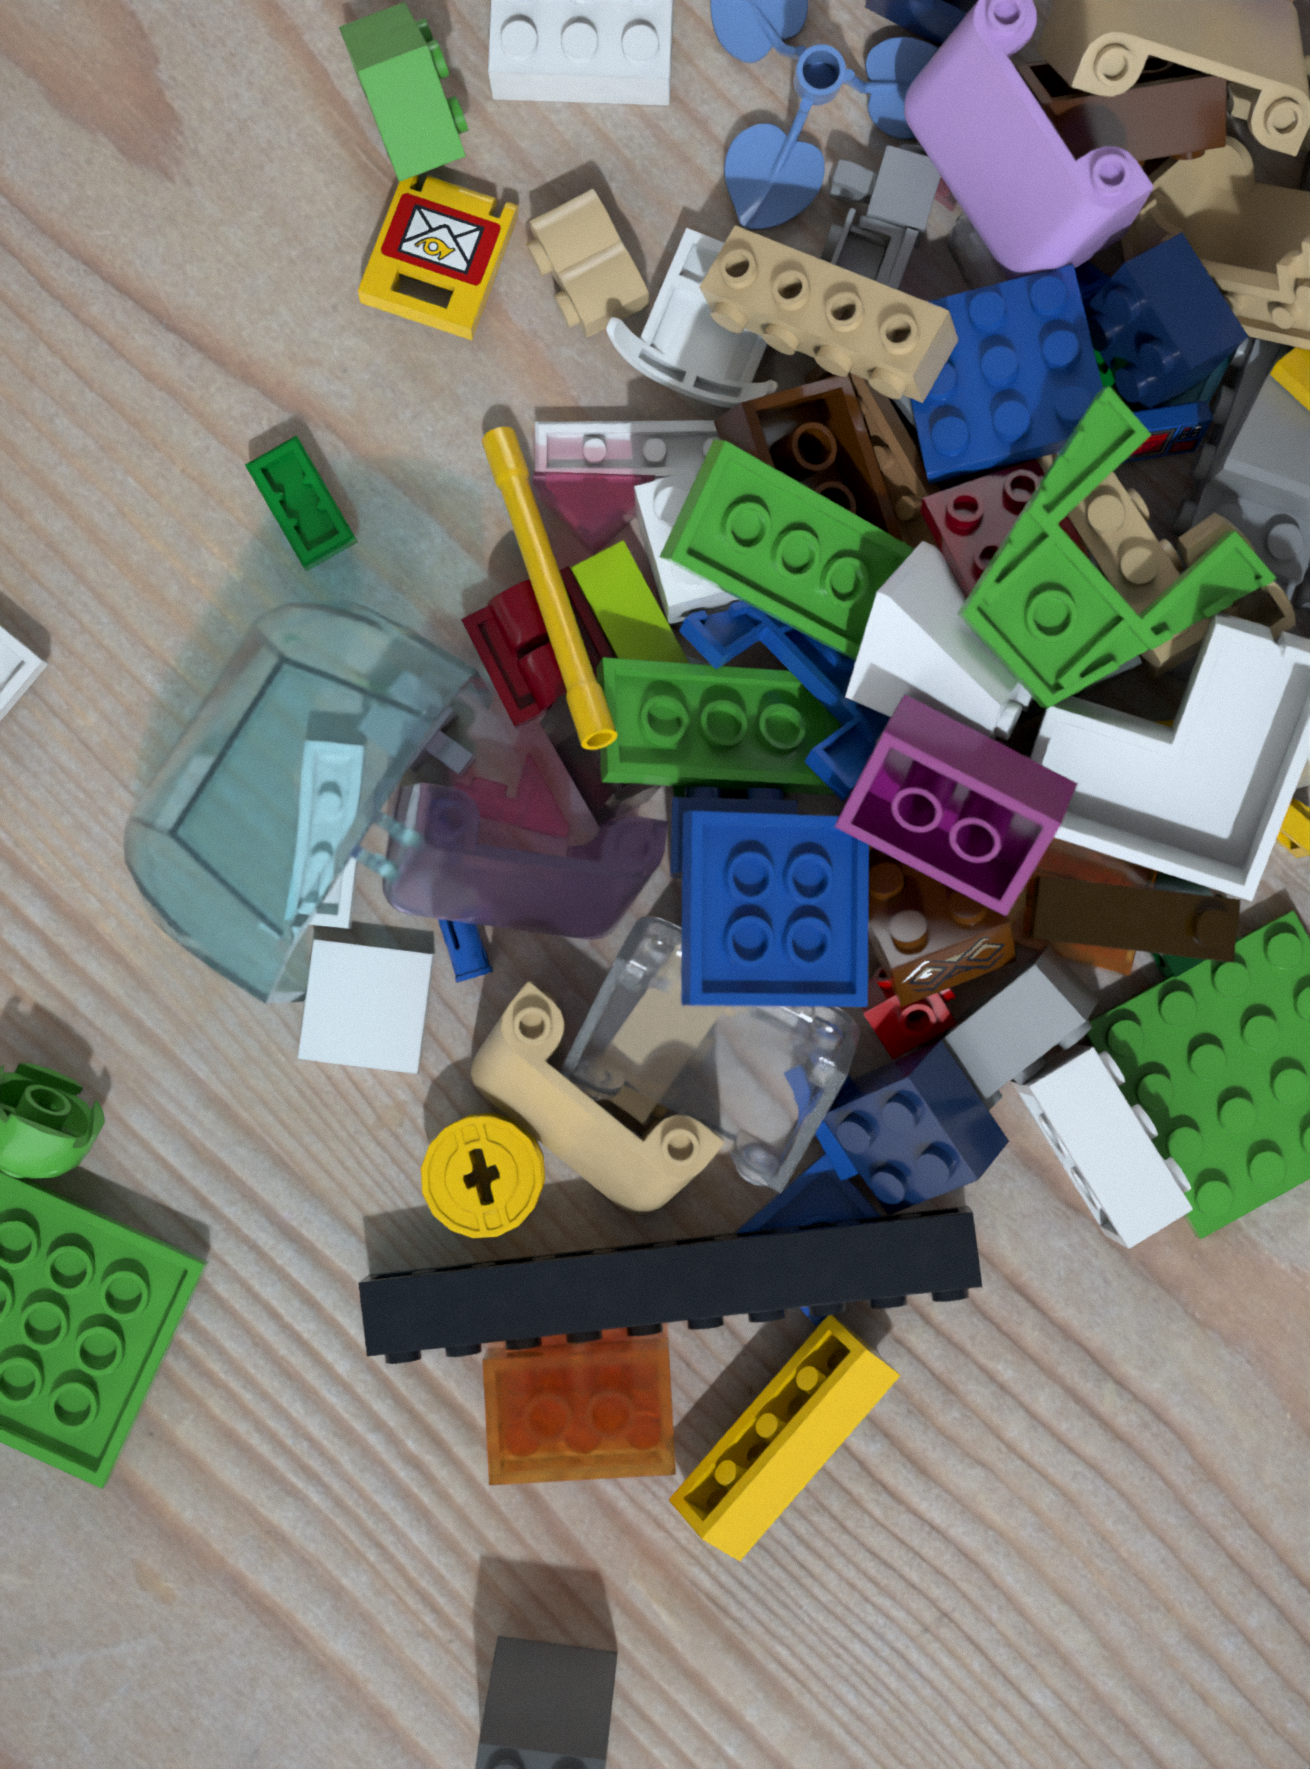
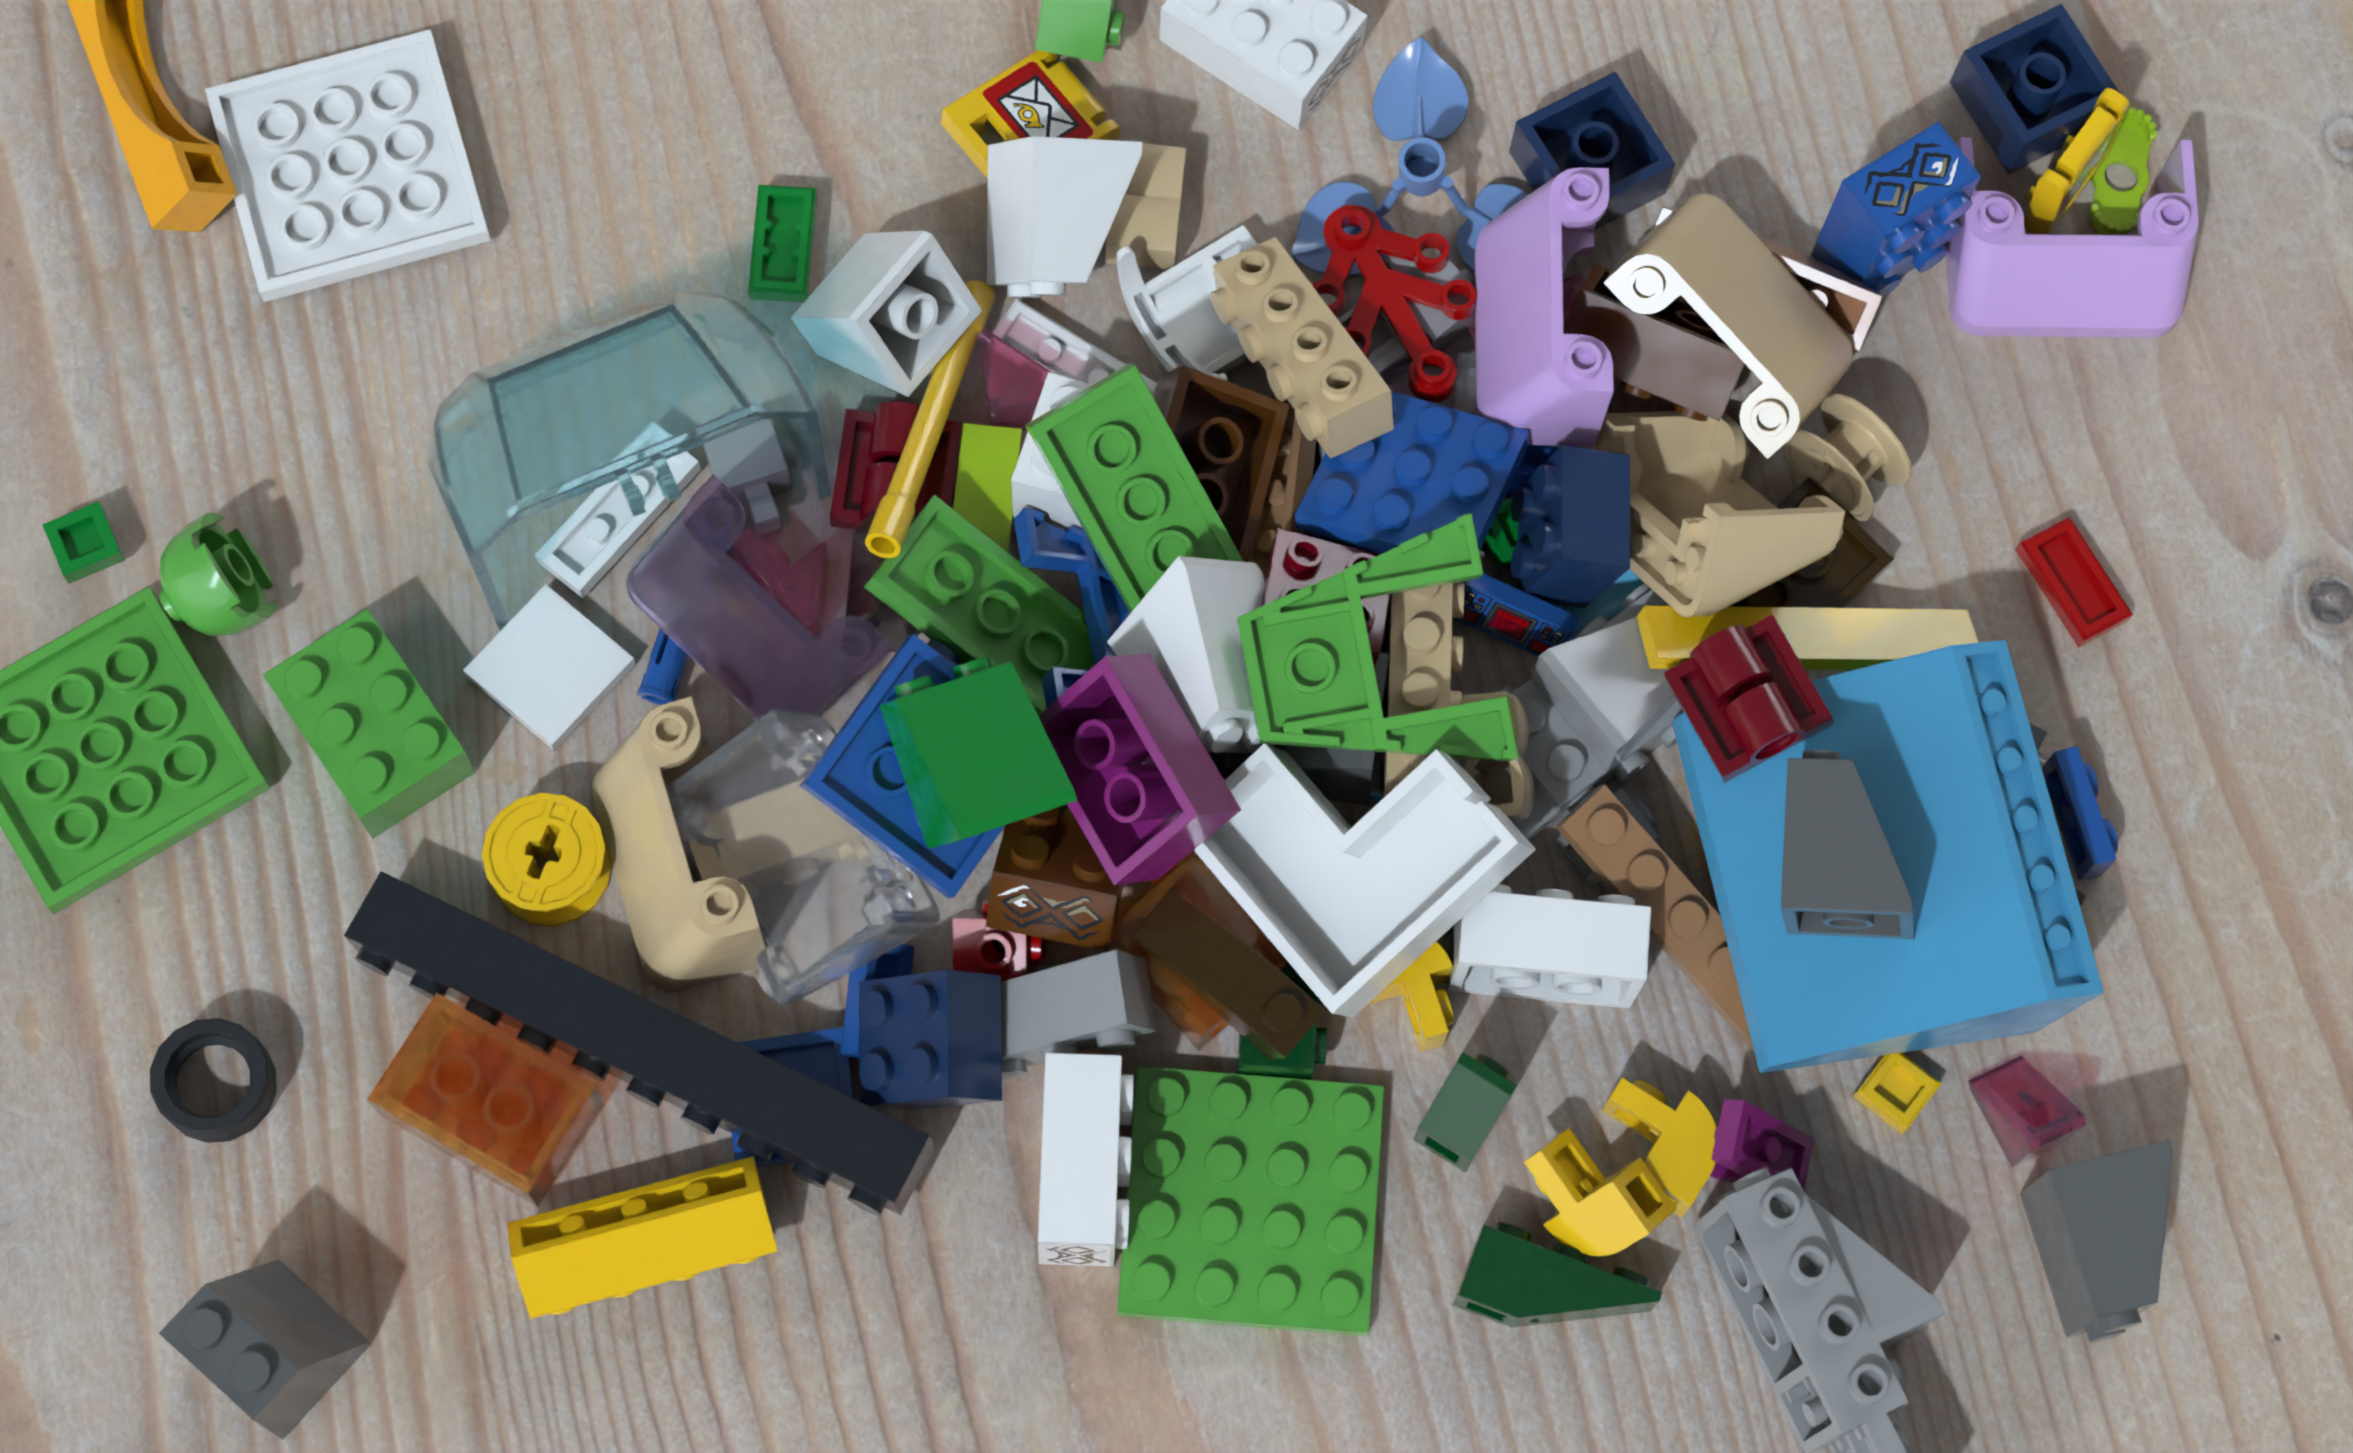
camera: 25 degrees right, 15 degrees down
(253, 1159) = (369, 723): none -> bright green brick
(318, 1578) = (180, 1047): none -> black tyre
(441, 510) = (889, 309): none -> white slope
(525, 326) = (1052, 209): none -> white slope
(823, 887) = (973, 752): none -> green slope
(859, 206) = (1390, 290): none -> red plant

